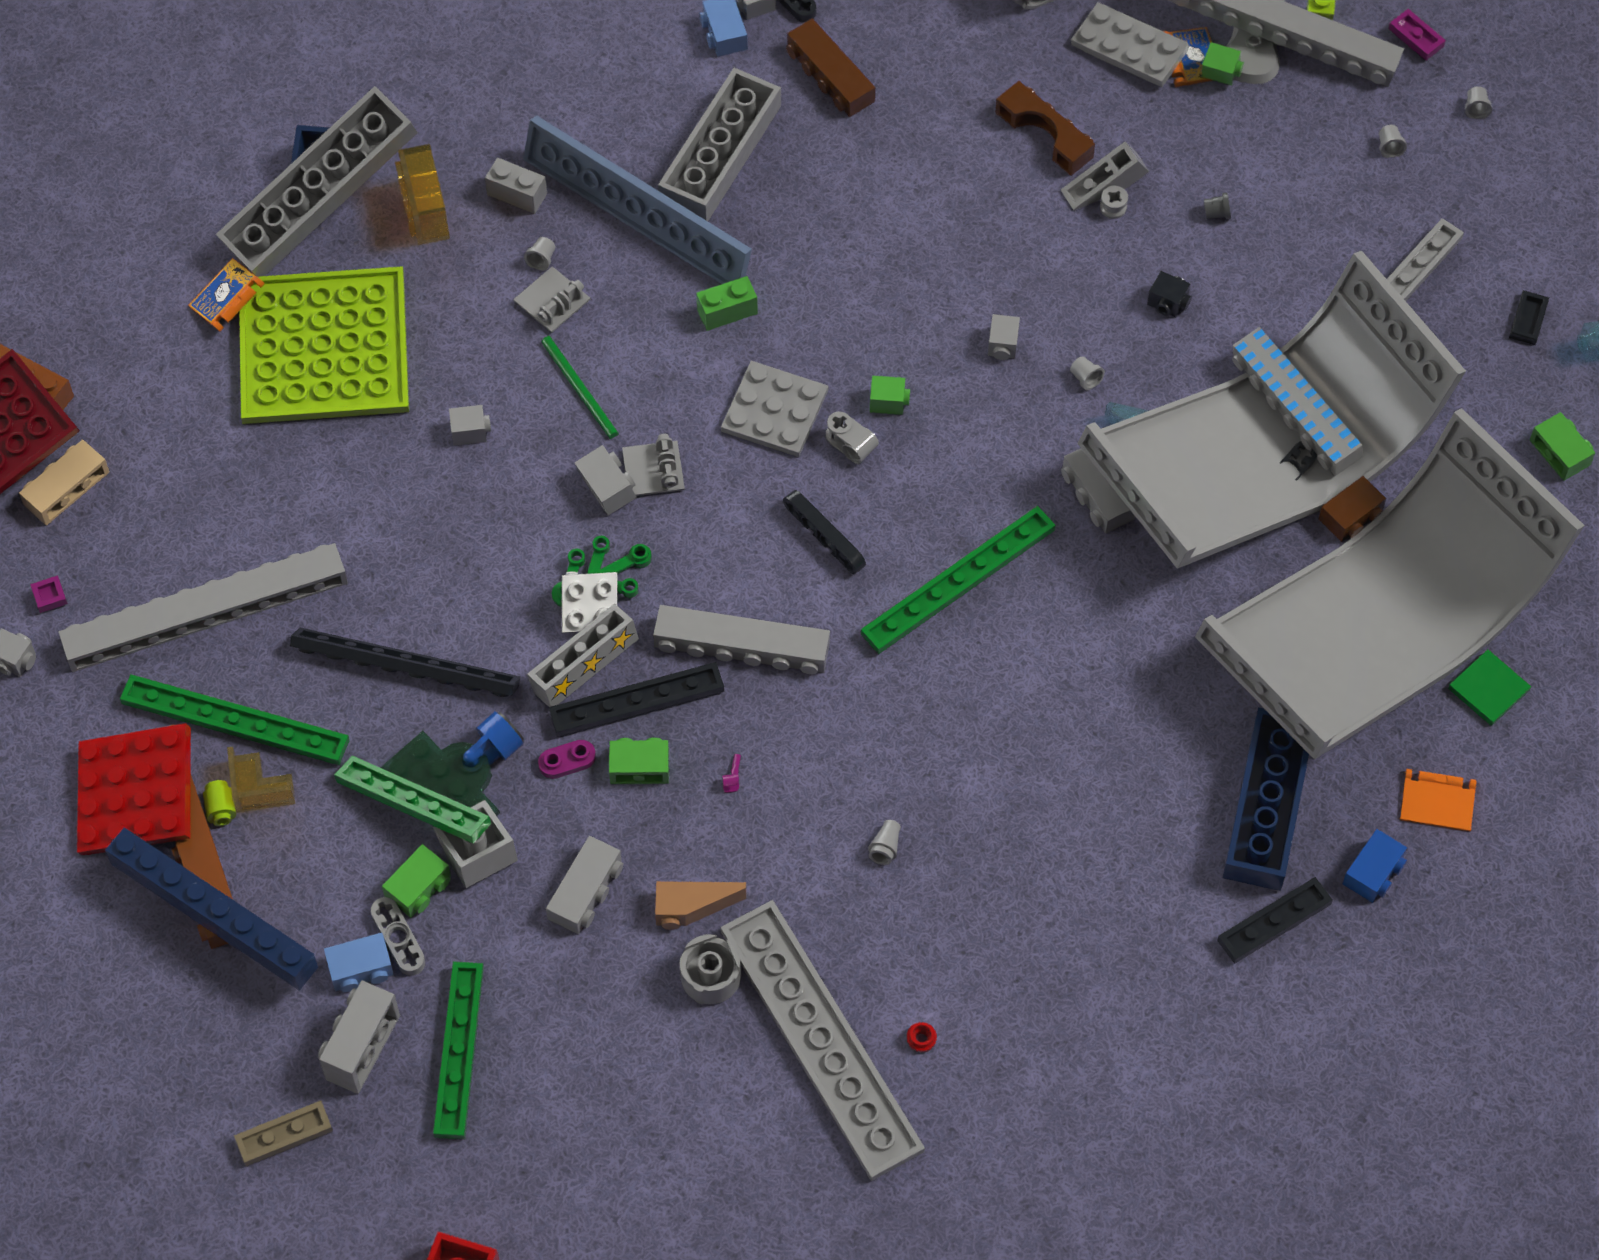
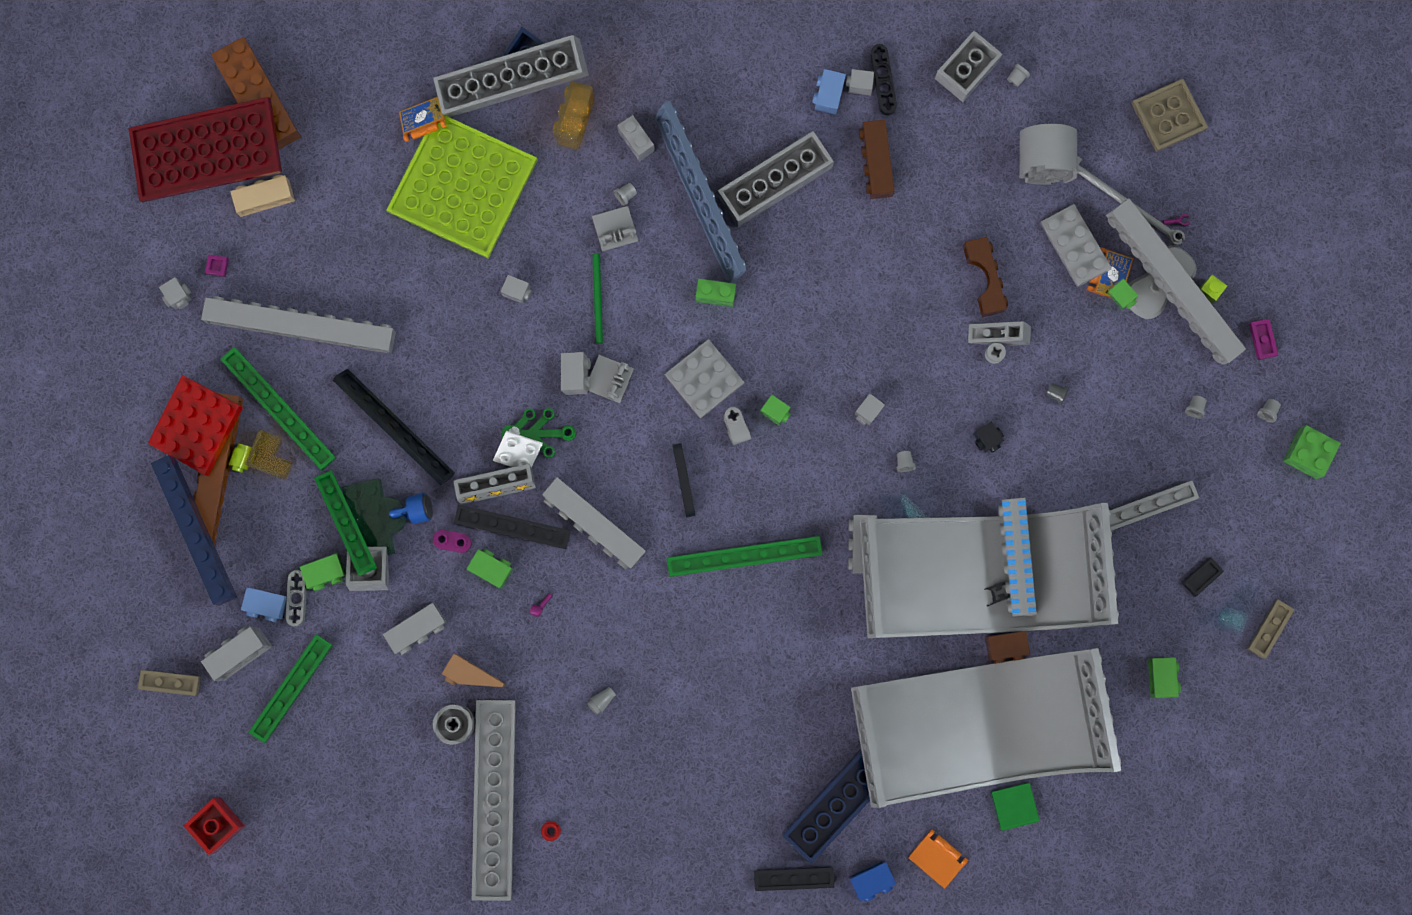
camera: 30 degrees right, 20 degrees up
(1556, 119) = (1311, 452): none -> bright green brick

